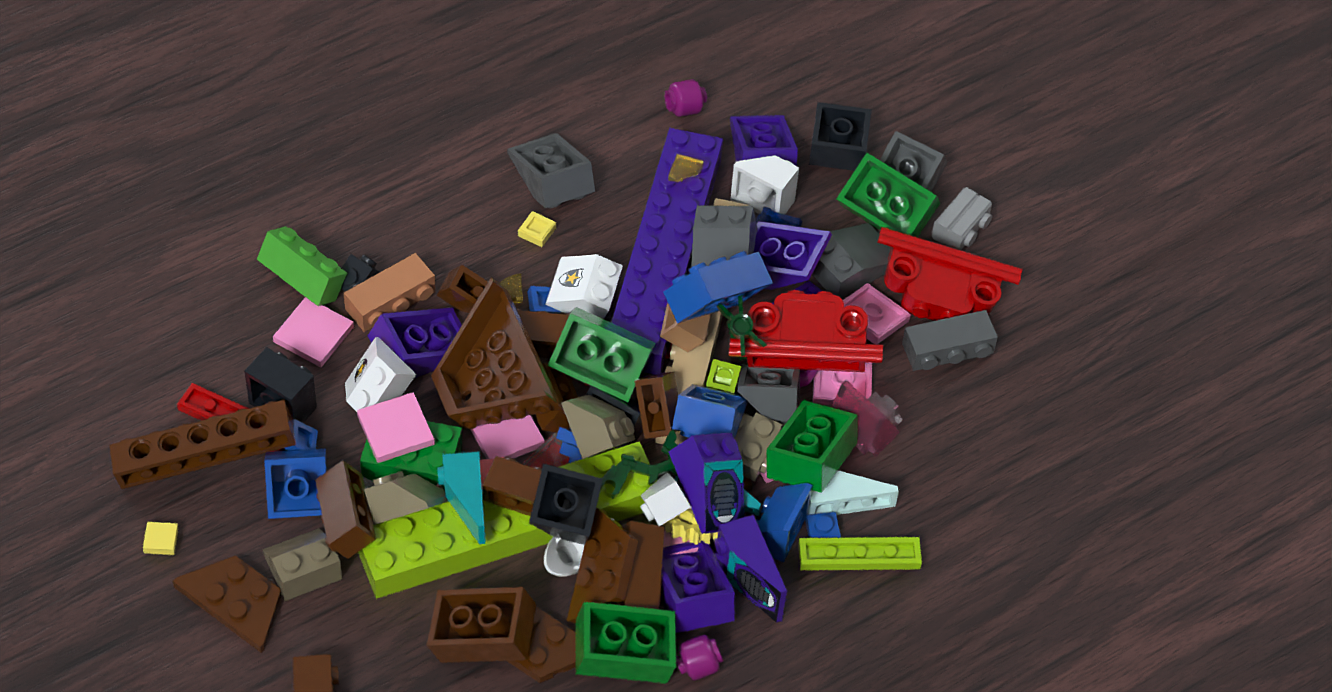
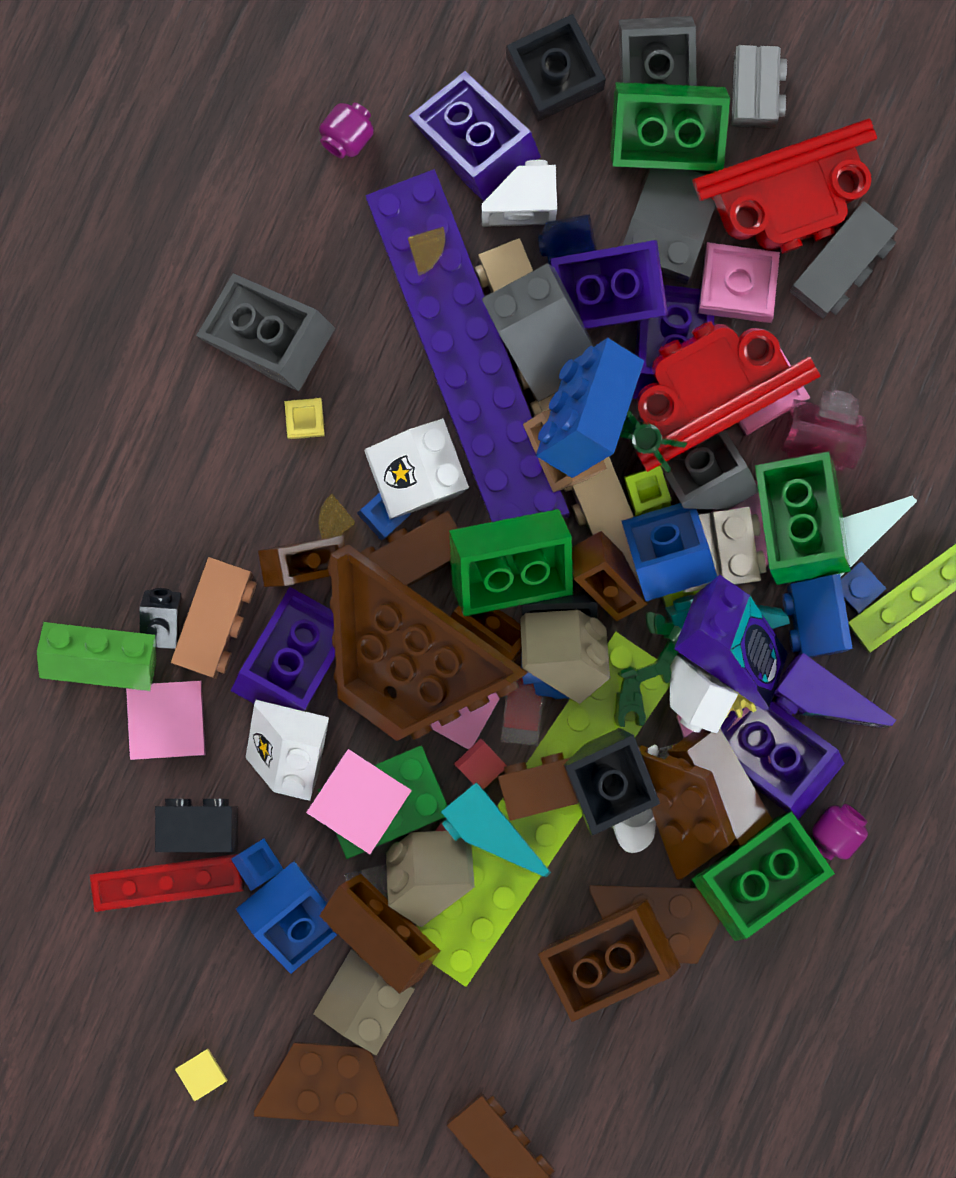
camera: 30 degrees left, 30 degrees up
(192, 455) = (107, 1025): reddish brown brick -> none

